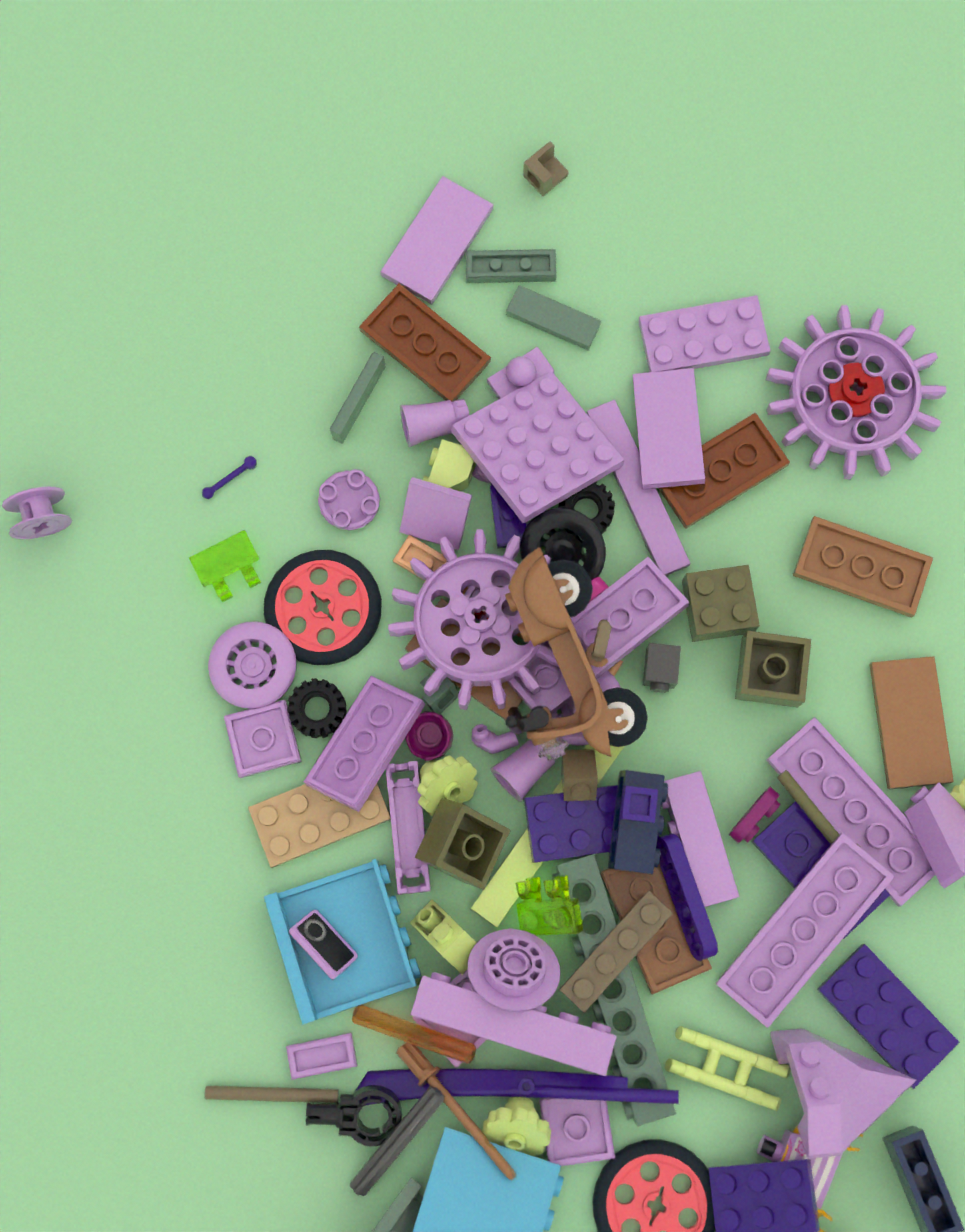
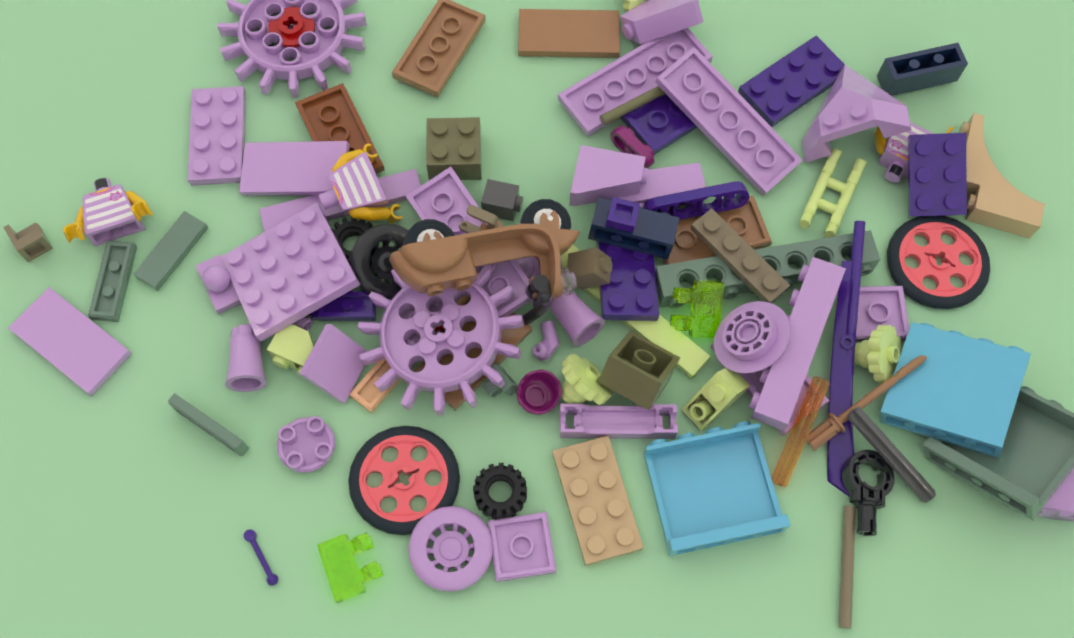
camera: 85 degrees left, 10 degrees down
(321, 1056) = (814, 518): lavender tile -> none
(323, 944) = (717, 503): slope -> none
(364, 743) = (539, 448): lavender tile -> none
(425, 343) = (168, 361): dark orange plate -> none
(584, 242) = (108, 214): none -> torso
(644, 501) = (358, 188): none -> torso
(698, 782) = (606, 175): none -> lavender slope
(773, 669) = (515, 116): olive brick -> none

